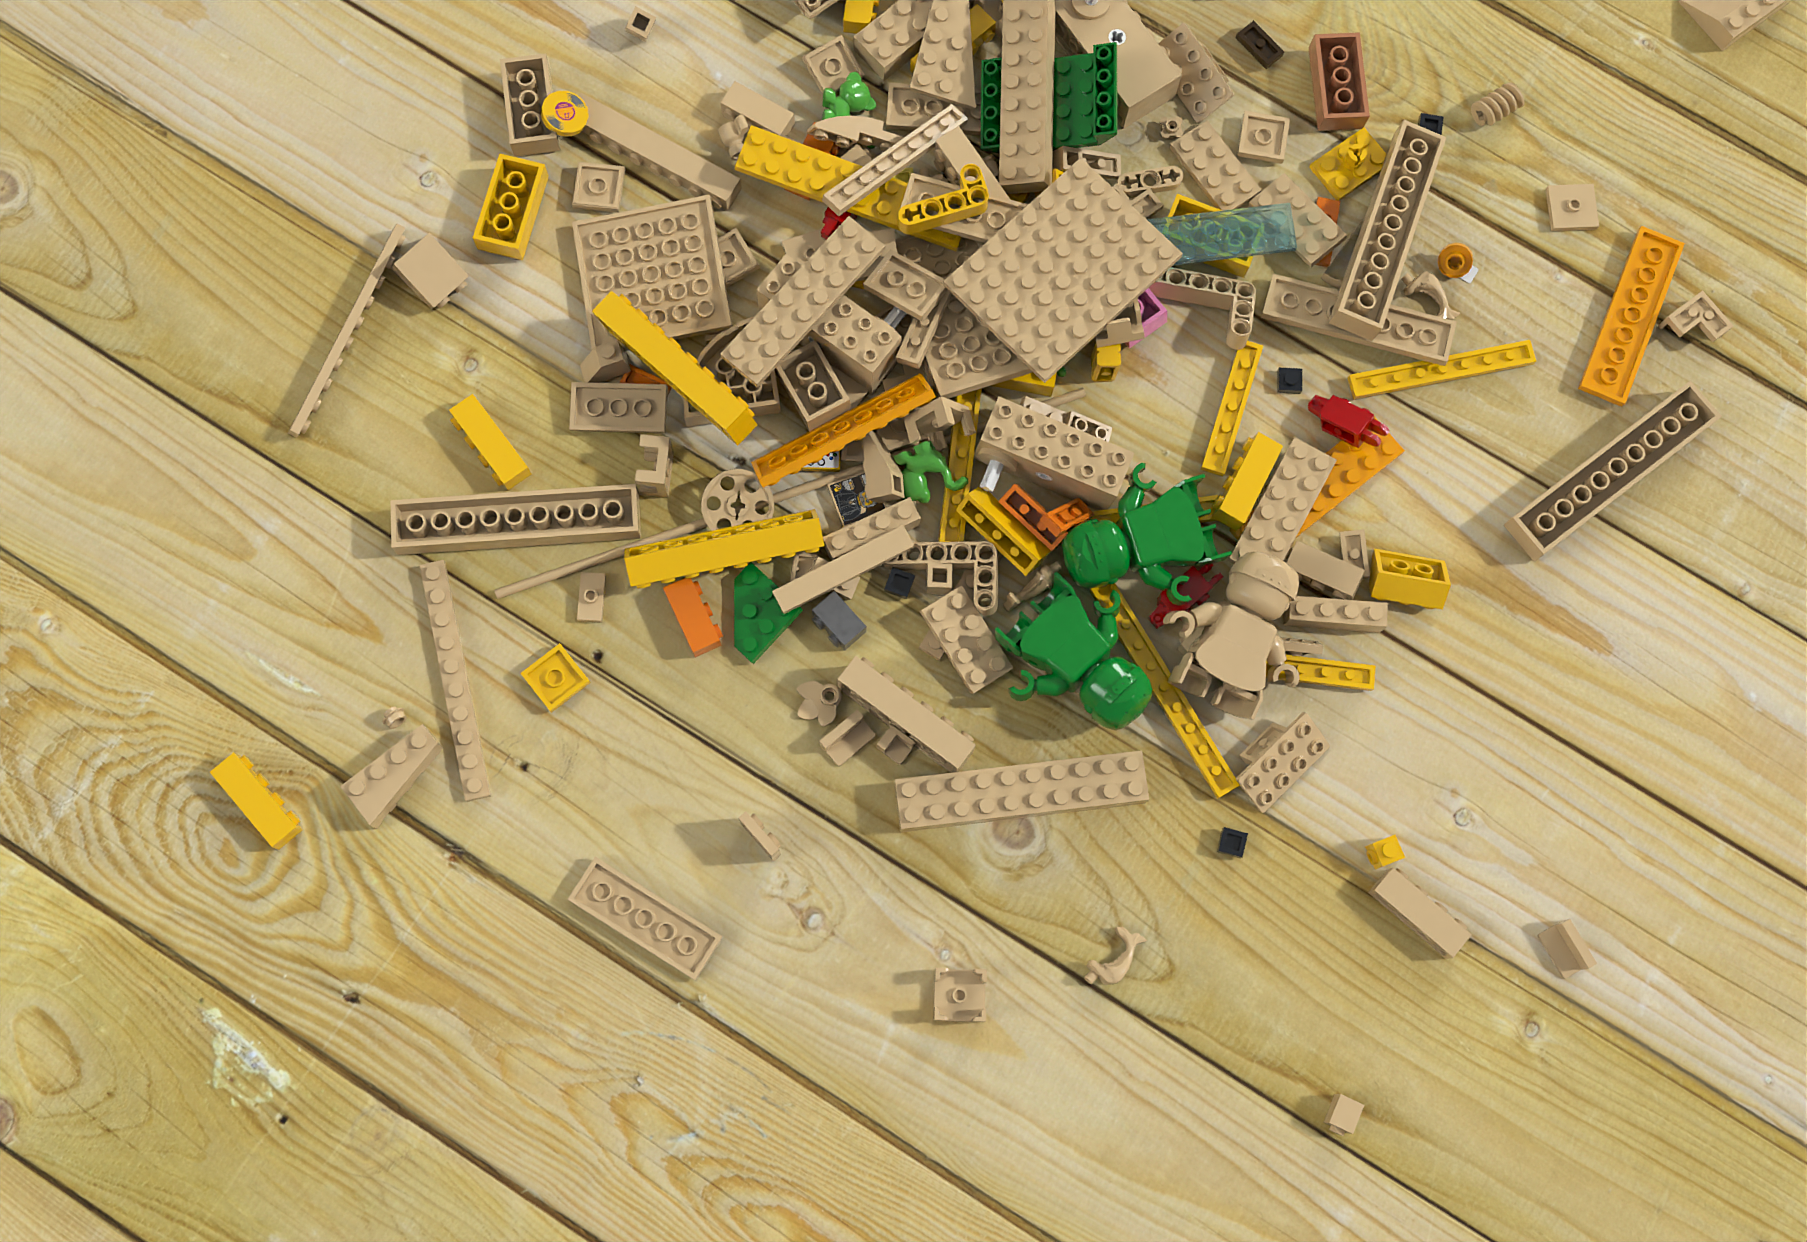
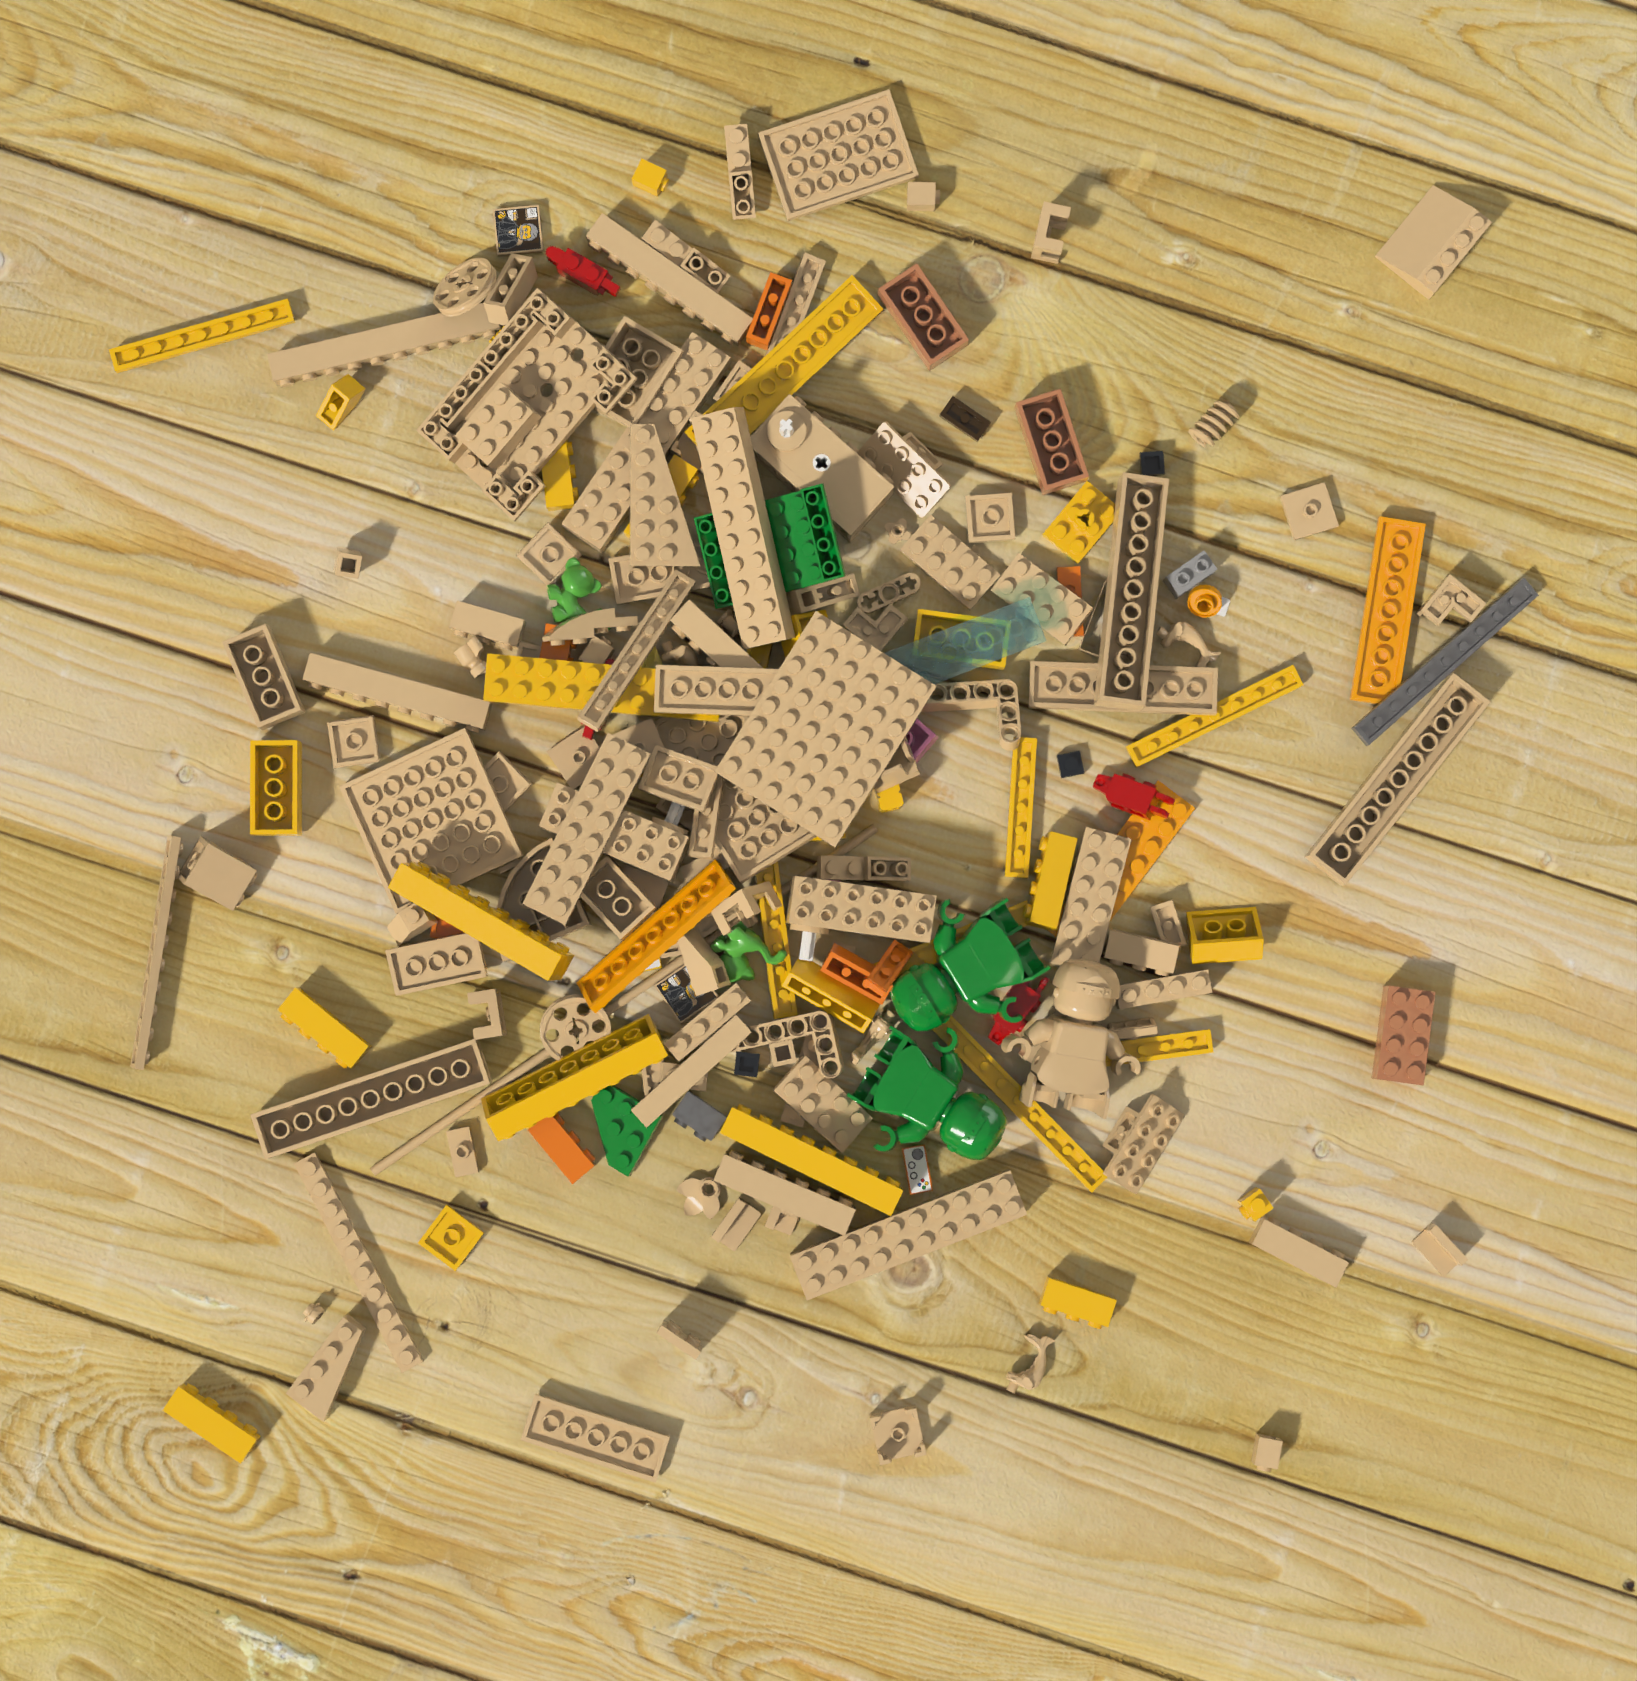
camera: 10 degrees left, 10 degrees up
(564, 113) = (301, 683): yellow tile -> none
(941, 204) = (694, 693): yellow beam -> none
(941, 689) = (812, 1160): none -> yellow brick
(1045, 731) = (917, 1169): none -> white tile
(1179, 906) = (1077, 1302): none -> yellow brick
(1232, 842) = (1113, 1230): black plate -> none
(1440, 233) = (1190, 574): none -> light grey brick
(1571, 721) = (1403, 1035): none -> nougat brick
(1680, 372) = (1444, 661): none -> flat silver plate

